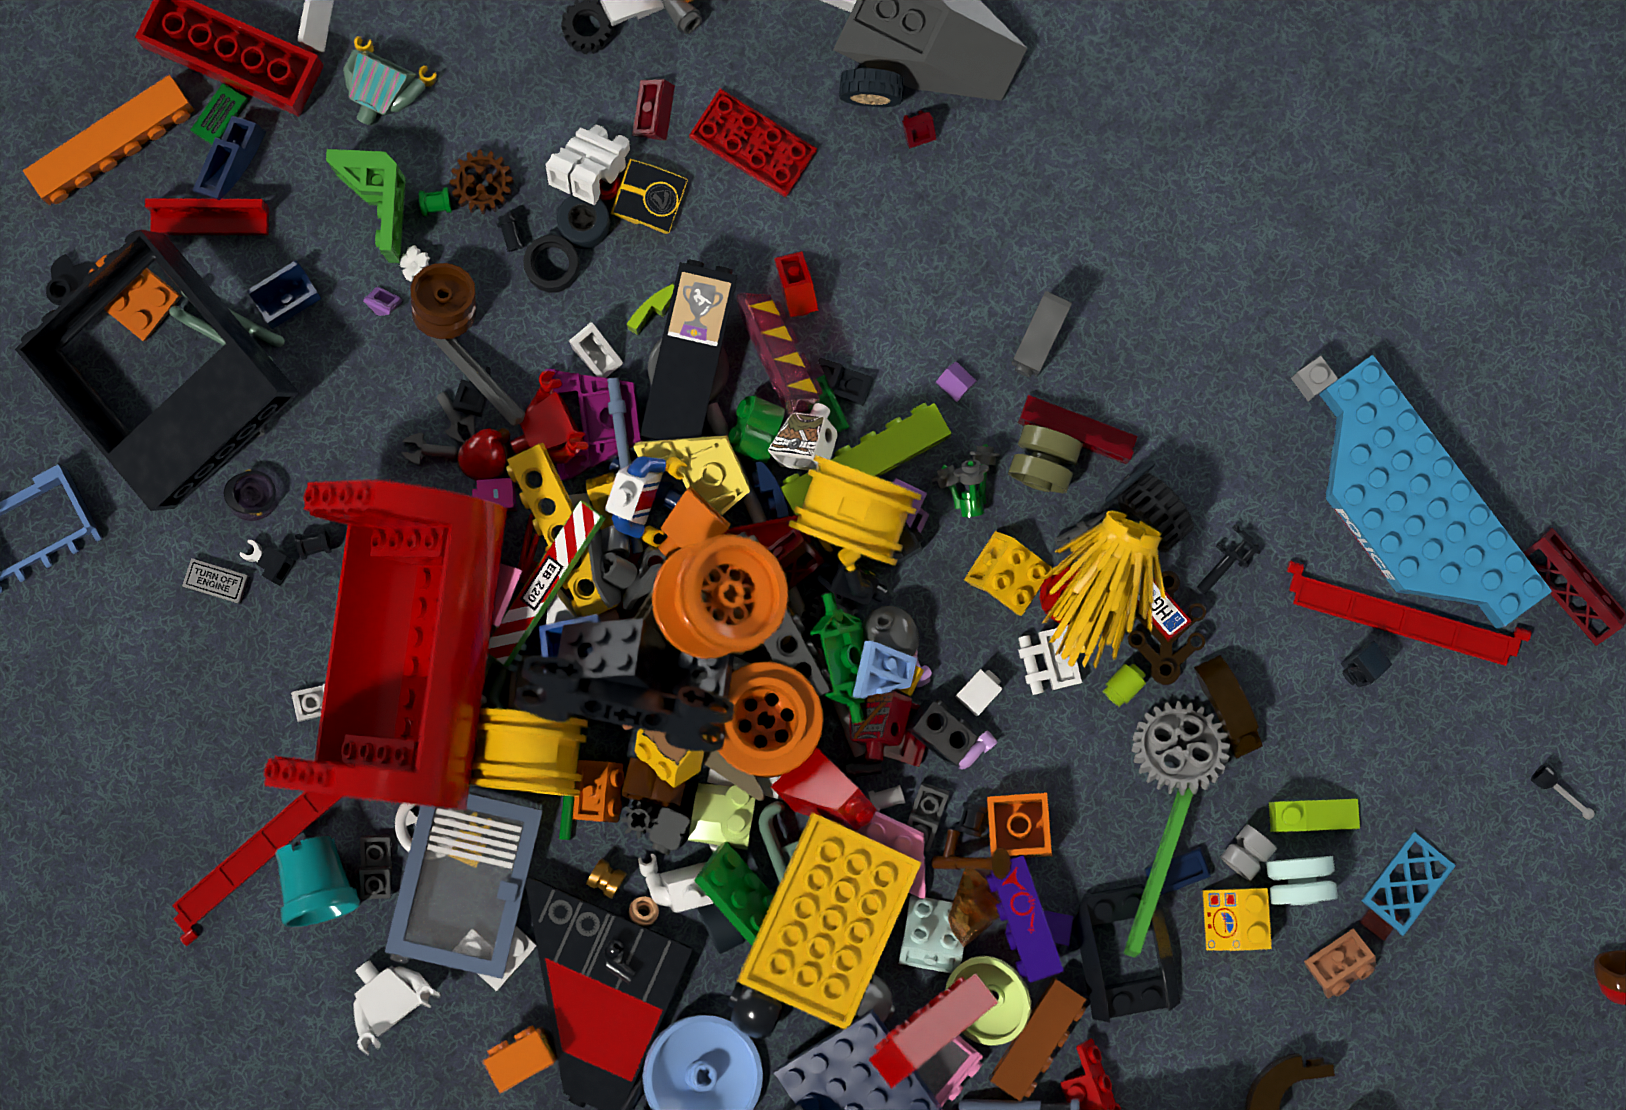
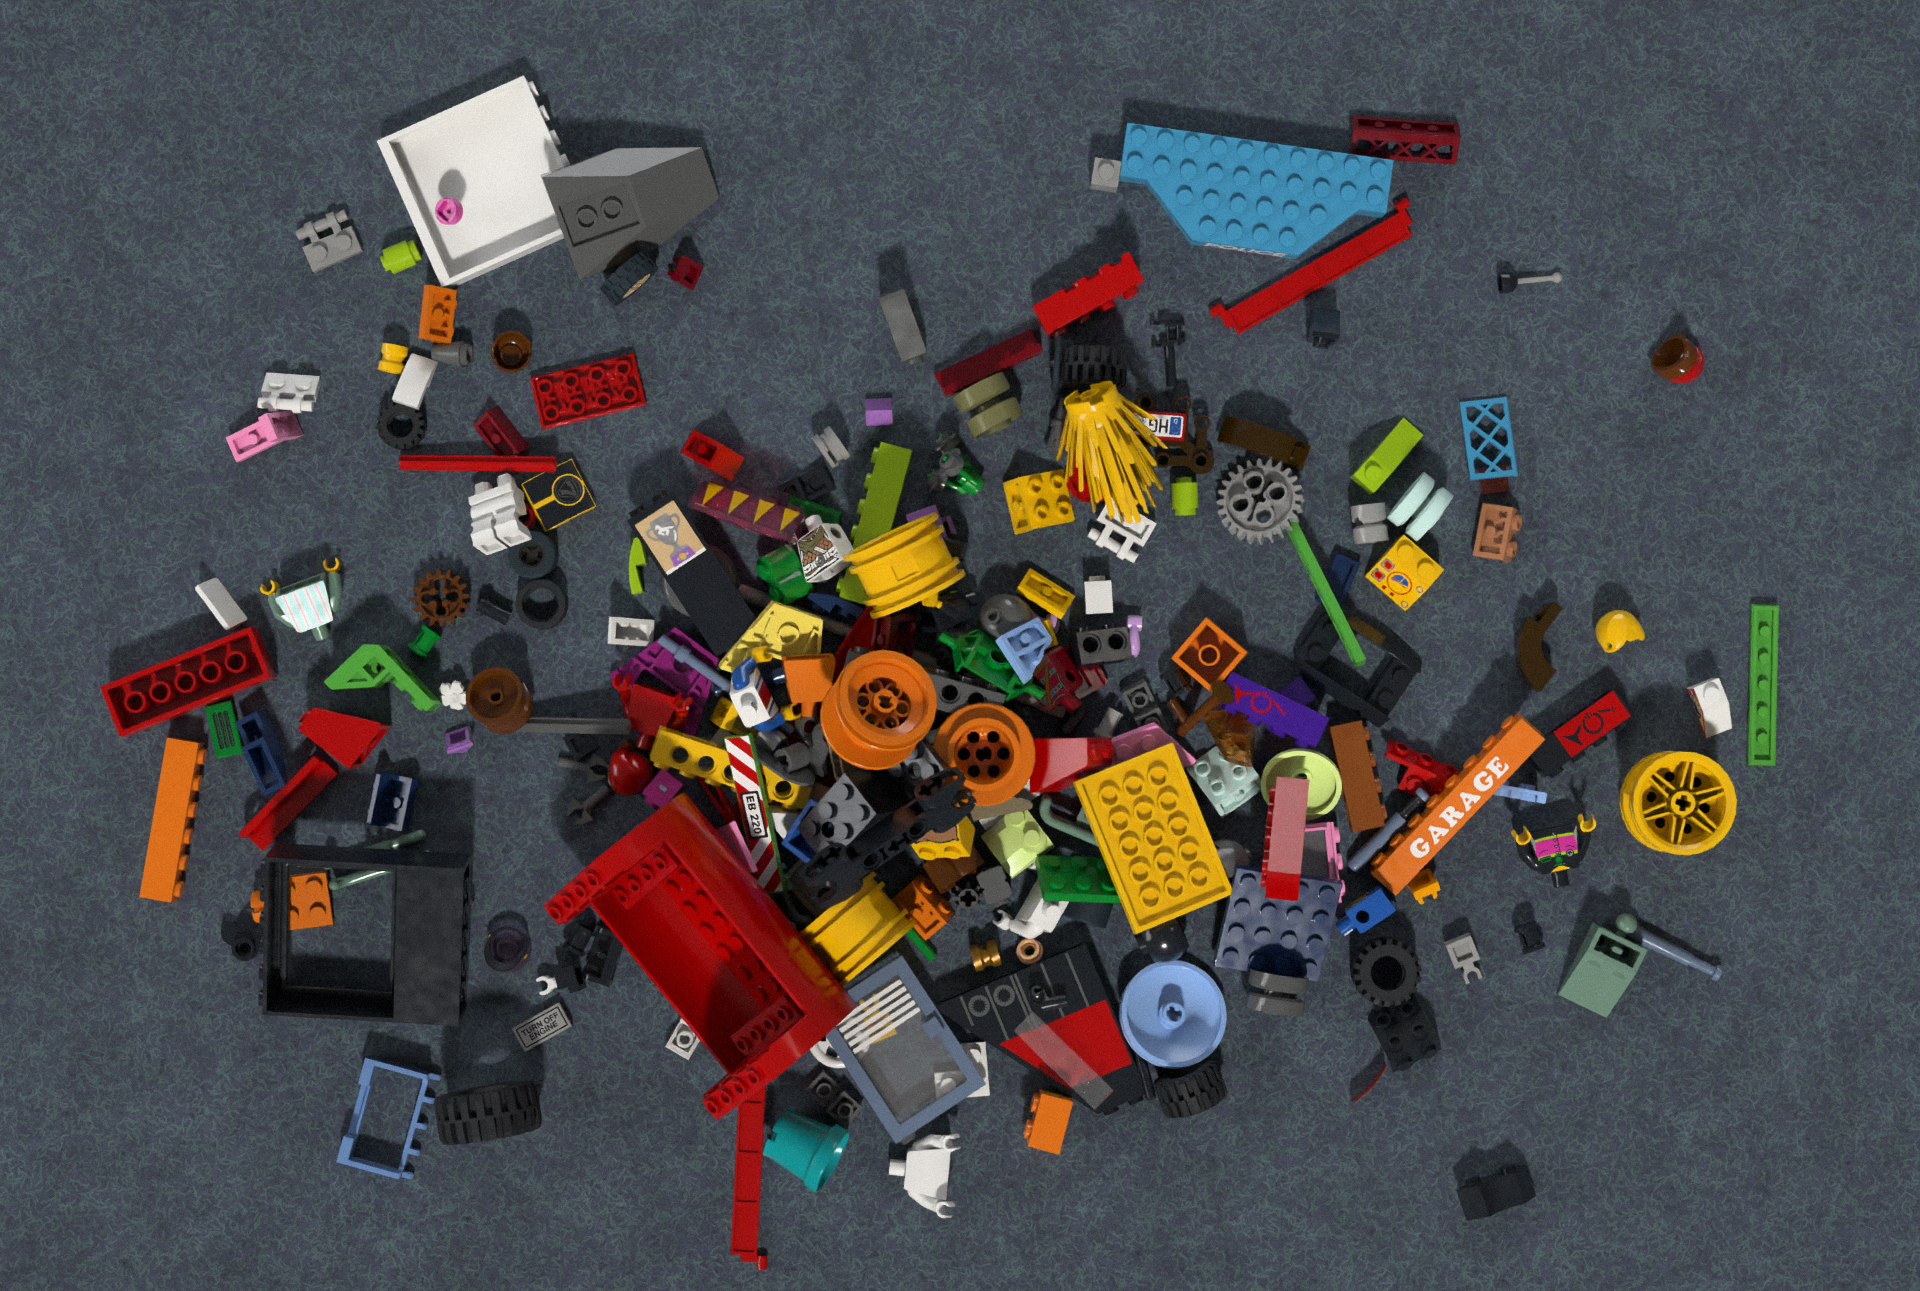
camera: 40 degrees left, 5 degrees up
(102, 600) = (488, 1112): none -> black tyre
(299, 206) = (343, 734): none -> red slope
(316, 577) = (603, 957): none -> black hinge
(580, 1023) = (1063, 1060): none -> clear slope
(615, 111) = (478, 463): none -> red axle
(726, 54) = (511, 351): none -> reddish brown hair
(892, 369) = (831, 447): none -> light grey wheel
(940, 648) = (1045, 593): none -> yellow plate
(1208, 456) = (1089, 296): none -> red wedge

